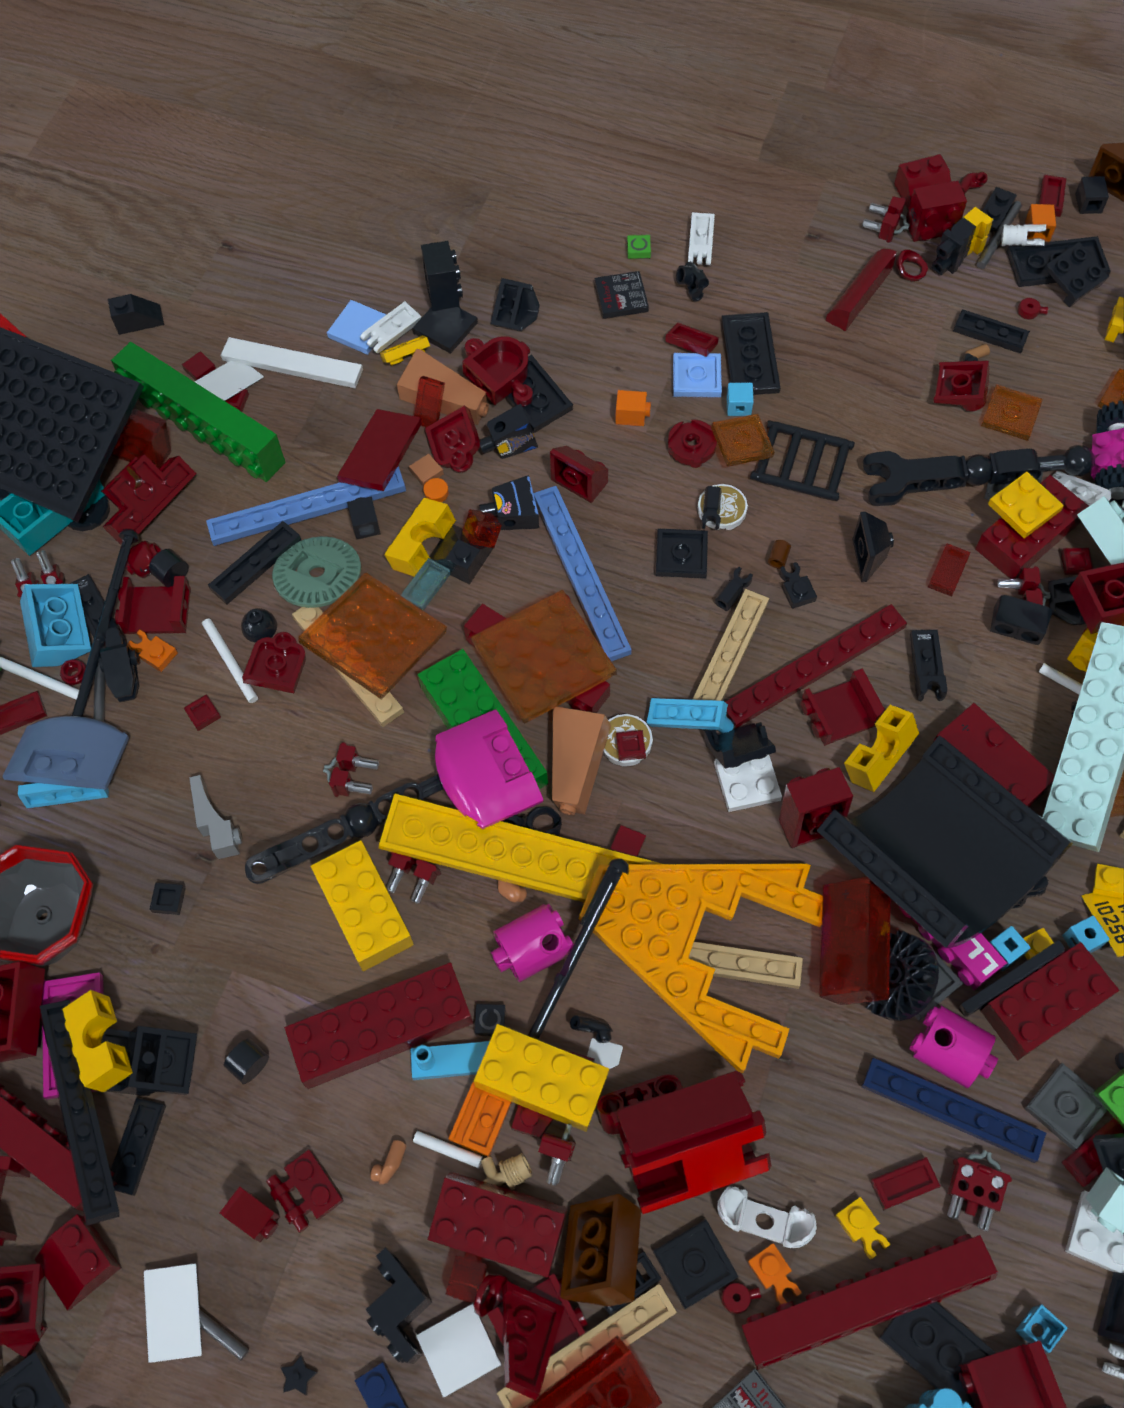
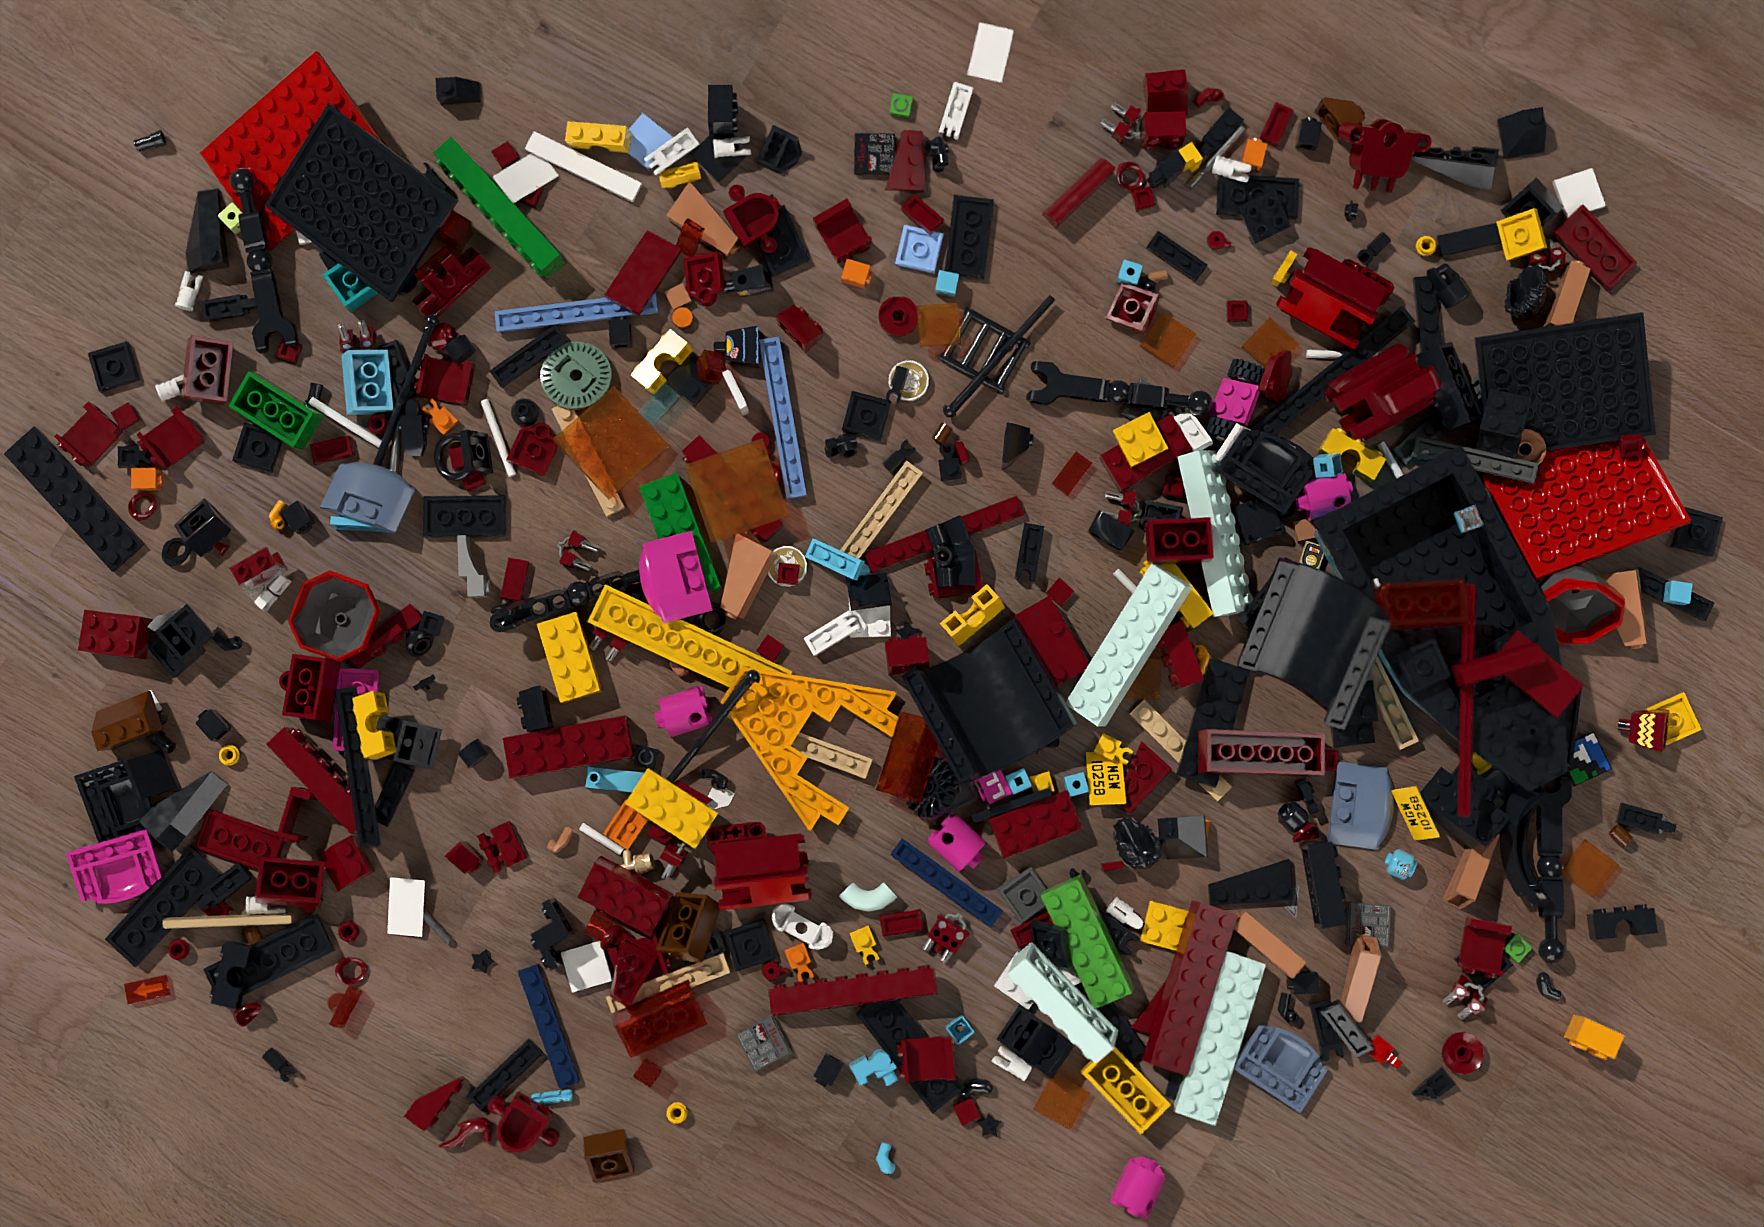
camera: 10 degrees right, 20 degrees up
(78, 1370) = (342, 931): none -> dark red plate
(106, 928) = (387, 634): none -> dark red bracket
(153, 926) = (418, 642): none -> black brick
(166, 978) = (425, 683): none -> black piece
(184, 691) = (456, 458): none -> dark red tile
(200, 675) = (474, 451): none -> black tile
(212, 754) = (464, 516): none -> black tile
(273, 821) = (514, 579): none -> dark red tile
(318, 319) = (584, 135): none -> yellow arch
(323, 978) = (535, 709): none -> black slope
(454, 309) = (726, 147): none -> white hinge
(517, 549) = (735, 391): none -> white tile
(602, 371) = (842, 231): none -> dark red panel
(660, 587) = (843, 444): none -> black plate
(663, 298) = (908, 166): none -> dark red wing
(705, 806) = (831, 633): none -> white hinge
(722, 187) = (990, 52): none -> white sticker
(783, 524) = (950, 411): none -> black bar
(810, 568) = (961, 452): none -> dark red tile
(850, 690) = (961, 563): none -> black panel
(851, 1157) = (868, 900): none -> light aqua cylinder
(933, 285) = (1143, 198): none -> dark red tile
(945, 350) = (1129, 279): none -> medium azure piece
(983, 700) = (1059, 592): none -> dark red tile
(1079, 371) = (1237, 311): none -> dark red tile

